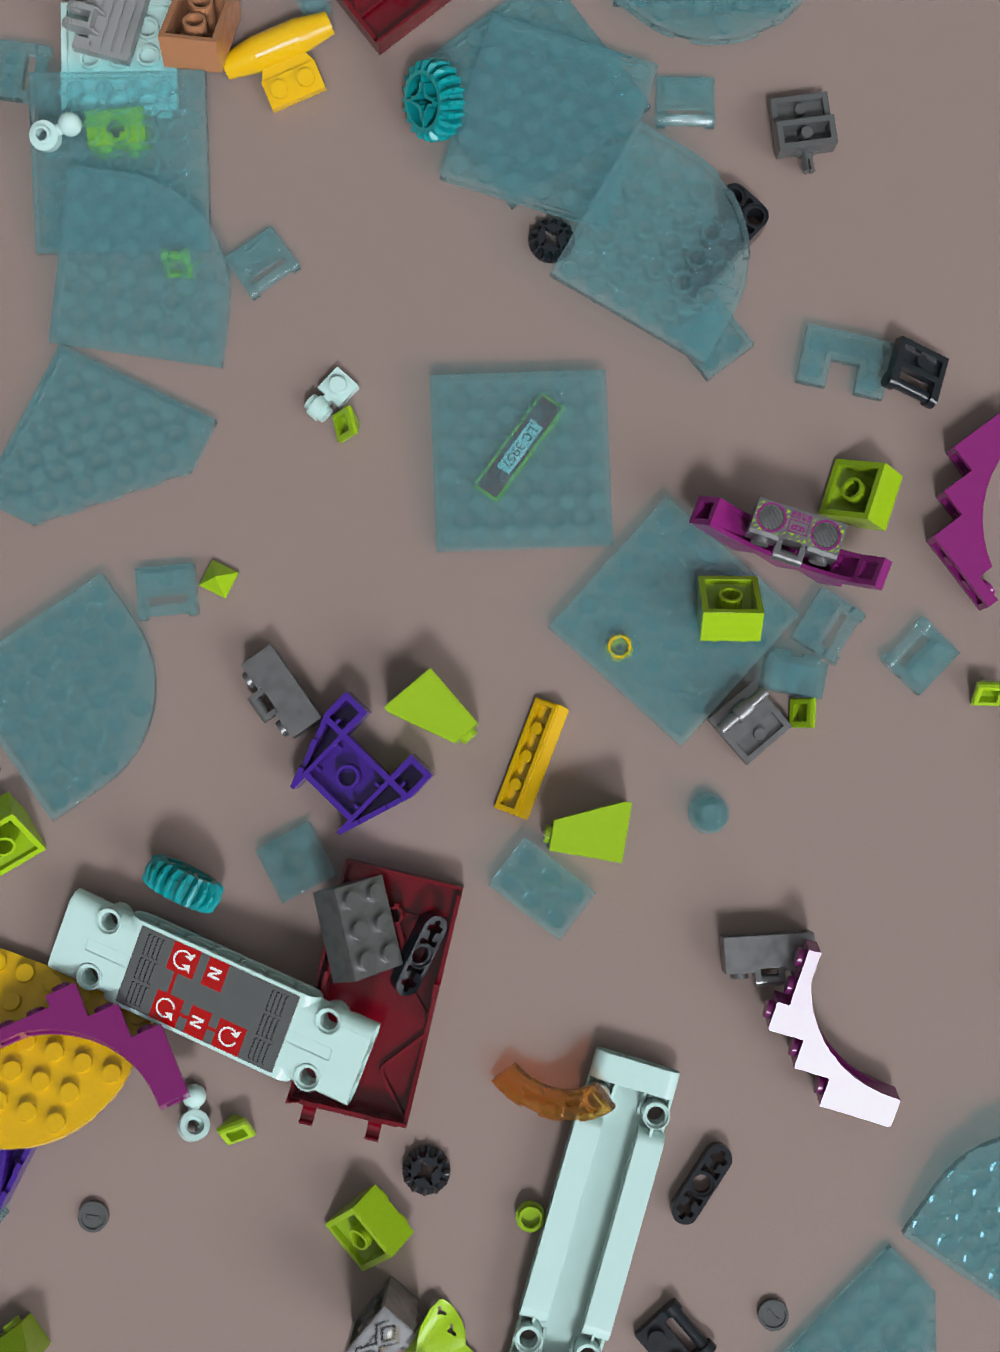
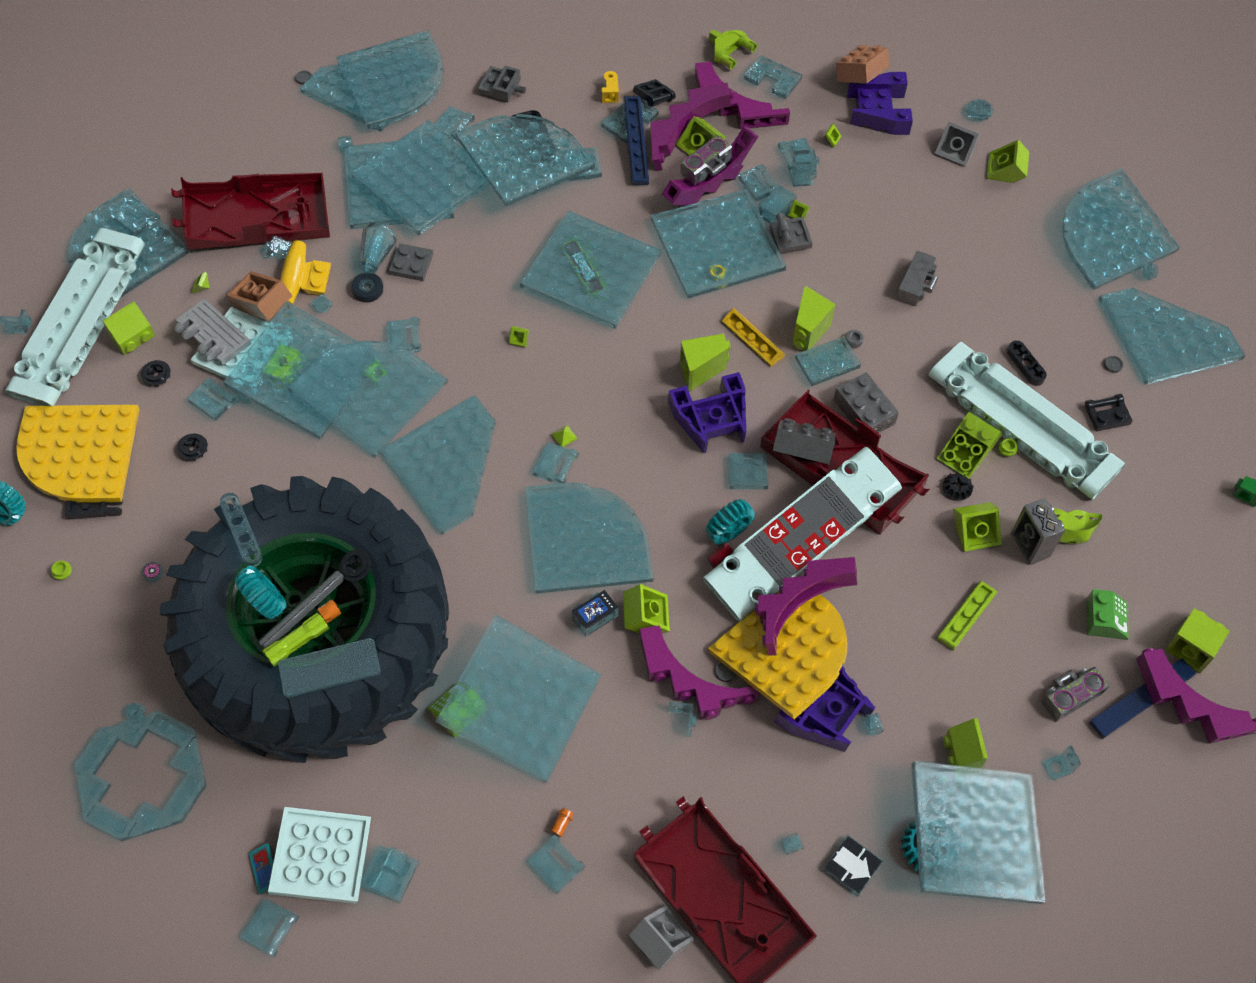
camera: 65 degrees left, 25 degrees down
(68, 124) = (267, 374): light aqua plate -> none
(93, 1216) = (902, 671): dark grey piece -> none
(136, 897) = (720, 554): none -> dark red tile
(194, 1114) = (872, 587): light aqua plate -> none
(223, 1270) = (967, 615): none -> lime tile
(235, 1129) = (887, 567): lime slope -> none
(255, 126) = (322, 303): none -> clear light blue plate
(276, 680) = (648, 431): flat silver piece -> none
(316, 148) = (364, 279): none -> black bush
(335, 389) = (498, 337): light aqua plate -> none
(375, 133) = (375, 246): none -> clear light blue cone
(395, 197) = (411, 262): none -> dark grey plate
(422, 964) = (829, 420): black beam -> none
(433, 99) = (383, 218): teal gear -> none
(487, 981) = (865, 401): none -> flat silver brick
(502, 1161) = (969, 445): none -> lime slope
(549, 252) = (477, 210): black gear -> none
(553, 1102) = (948, 404): clear orange tile -> none
(607, 906) = (854, 338): none -> flat silver tile
(708, 813) = (828, 273): clear light blue brick -> none
(729, 608) = (728, 210): lime slope -> none
(801, 395) = (636, 140): none -> dark blue tile
(838, 1083) = (975, 277): arch -> none
(842, 435) = (668, 131): none -> magenta arch
(883, 305) = (610, 90): none -> yellow leg
(885, 684) = (804, 167): none -> clear light blue brick
(984, 1308) = (1150, 271): none -> clear light blue plate

